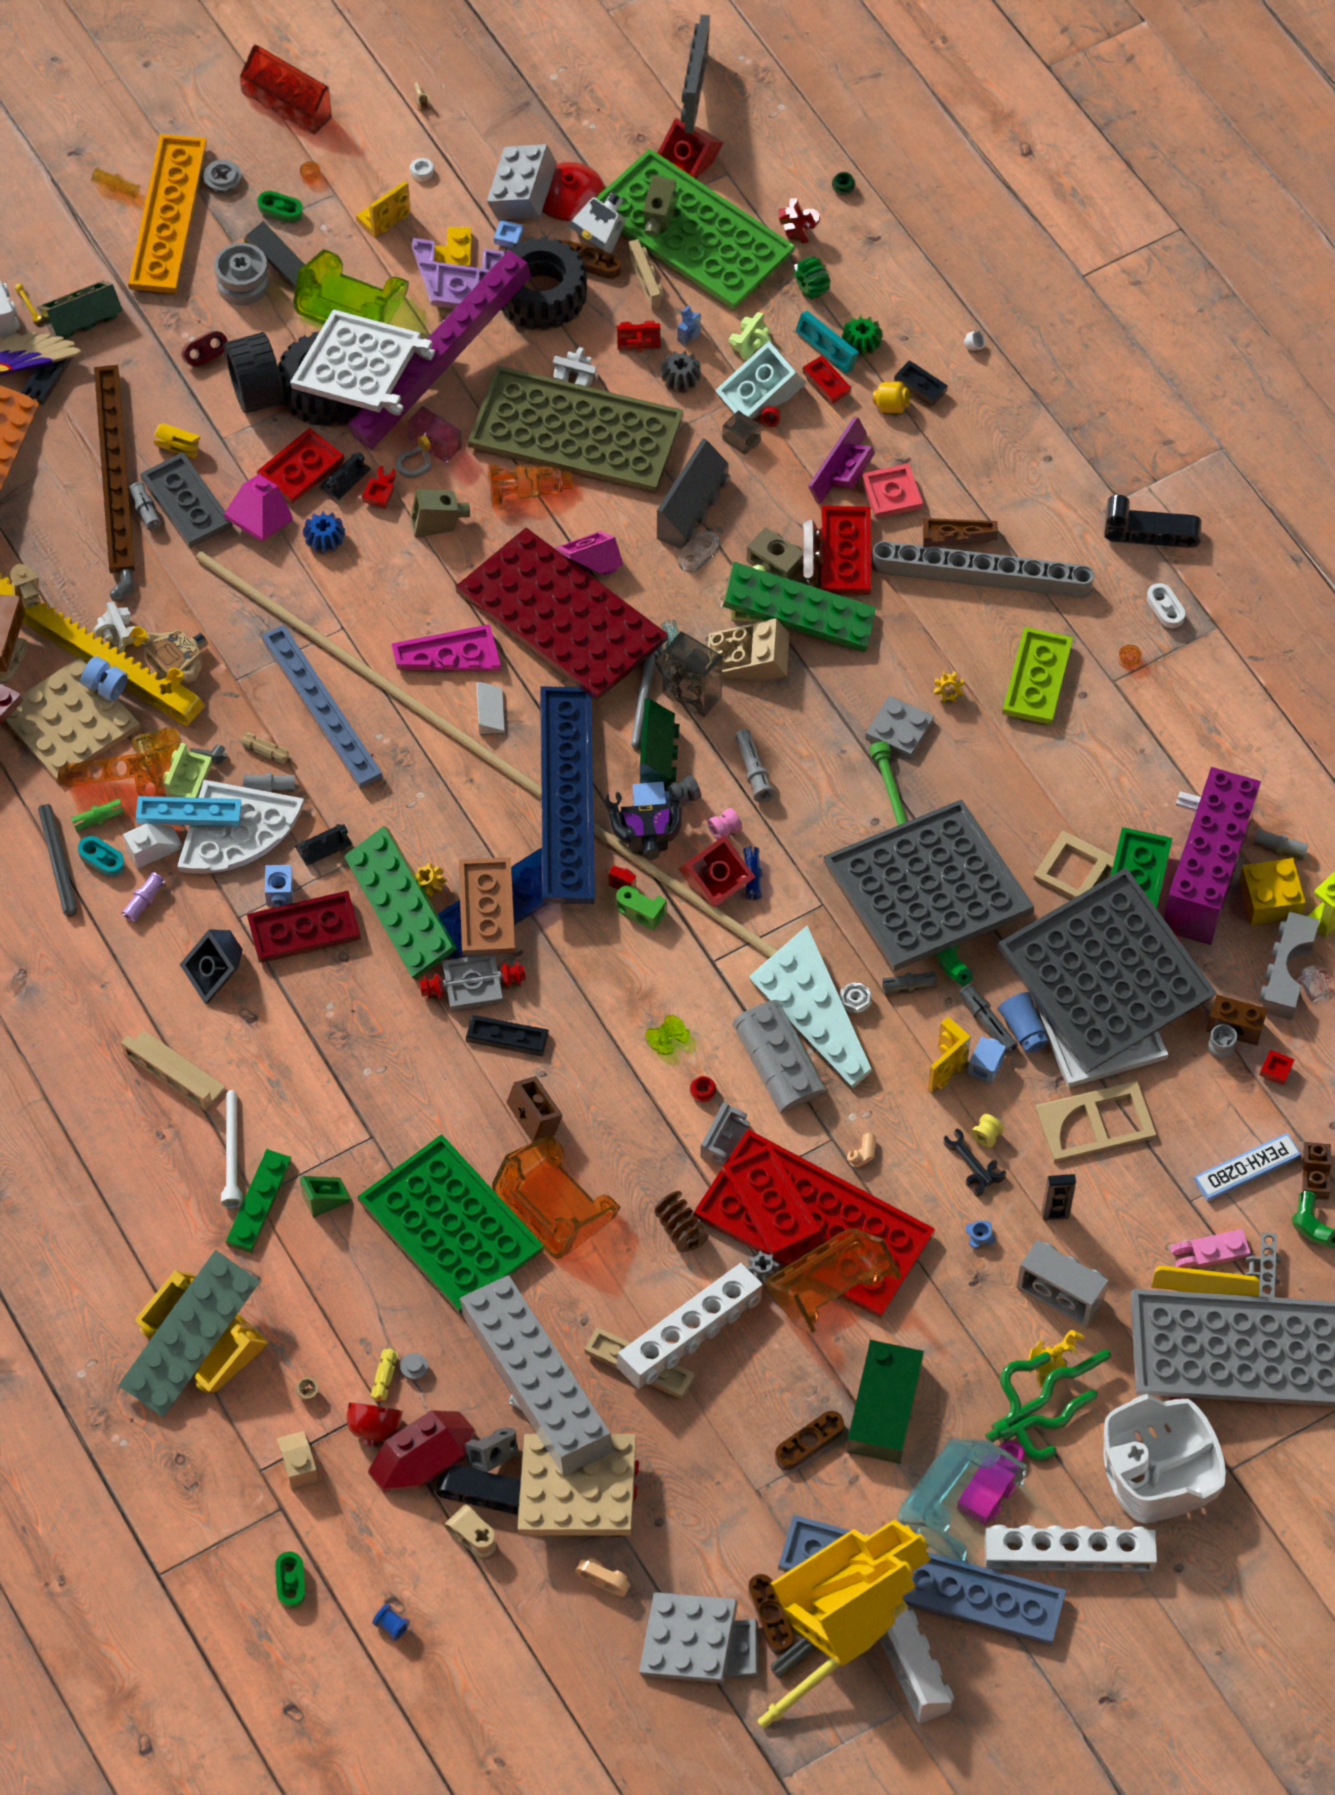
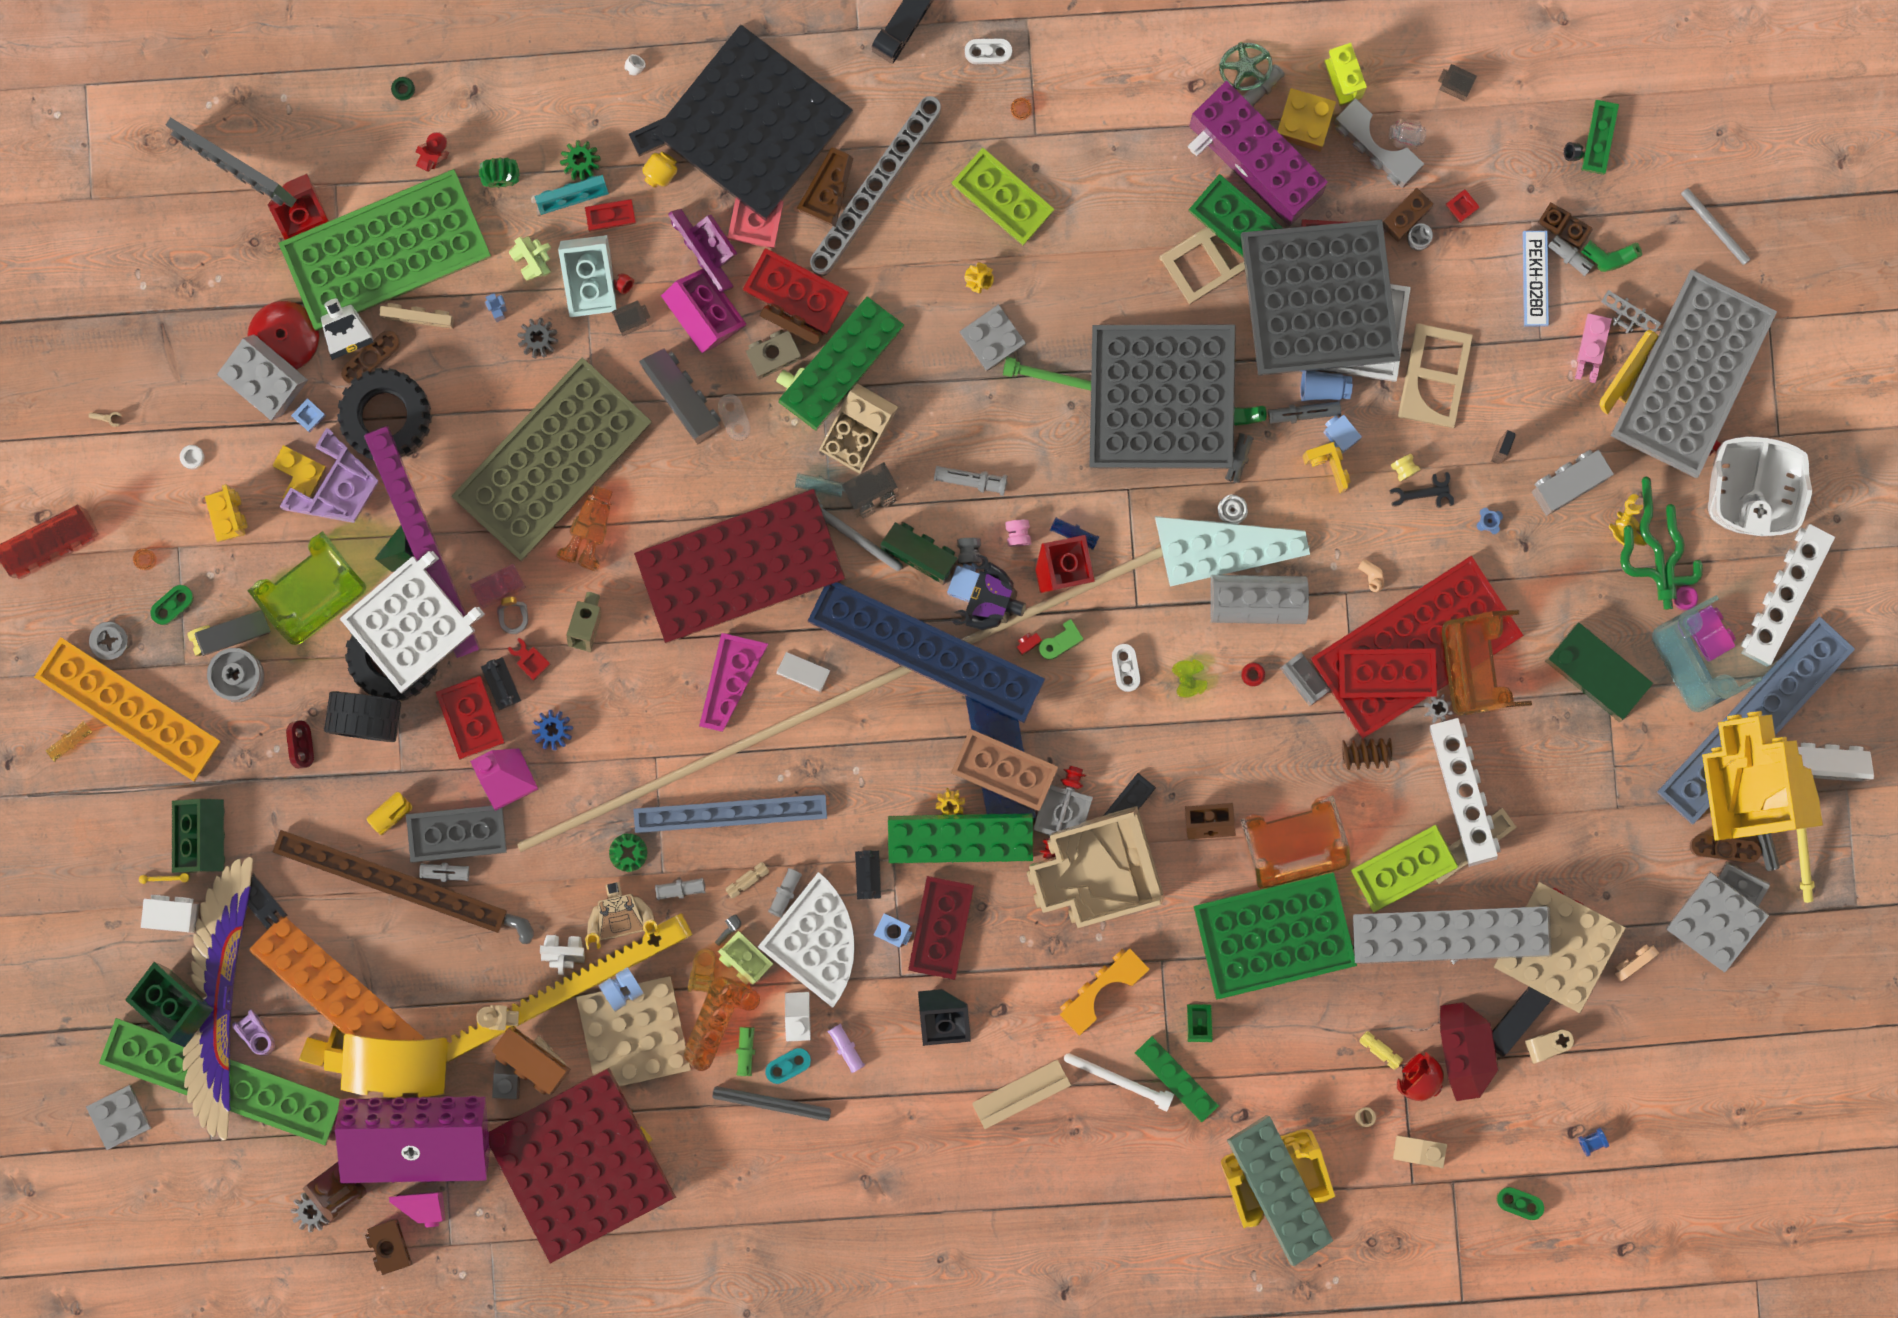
camera: 60 degrees left, 25 degrees up
(188, 811) = (788, 975): medium azure plate -> none
(227, 696) = (680, 888): none -> light grey pin
(244, 650) = (639, 852): none -> green gear
(283, 1082) = (1080, 1012): none -> light orange arch
(414, 1366) = (1385, 1023): light grey plate -> none
(434, 1028) = (1098, 870): none -> tan panel
(492, 1450) = (1493, 996): dark grey leg -> none
(565, 367) = (497, 421): white hips -> none
(582, 1307) = (1404, 868): none -> lime plate
(595, 551) = (690, 510): dark pink slope -> none
(638, 335) = (483, 356): red hips -> none
(644, 973) = (1125, 668): none -> white plate
(659, 205) = (353, 263): olive torso -> none
(782, 484) = (703, 310): none -> dark pink slope
(788, 1445) = (1600, 727): reddish brown beam -> none
(980, 450) = (753, 122): none -> black plate
(1290, 820) = (1246, 66): none -> clear green wheel
(1290, 1187) = (1570, 255): none -> light grey pin

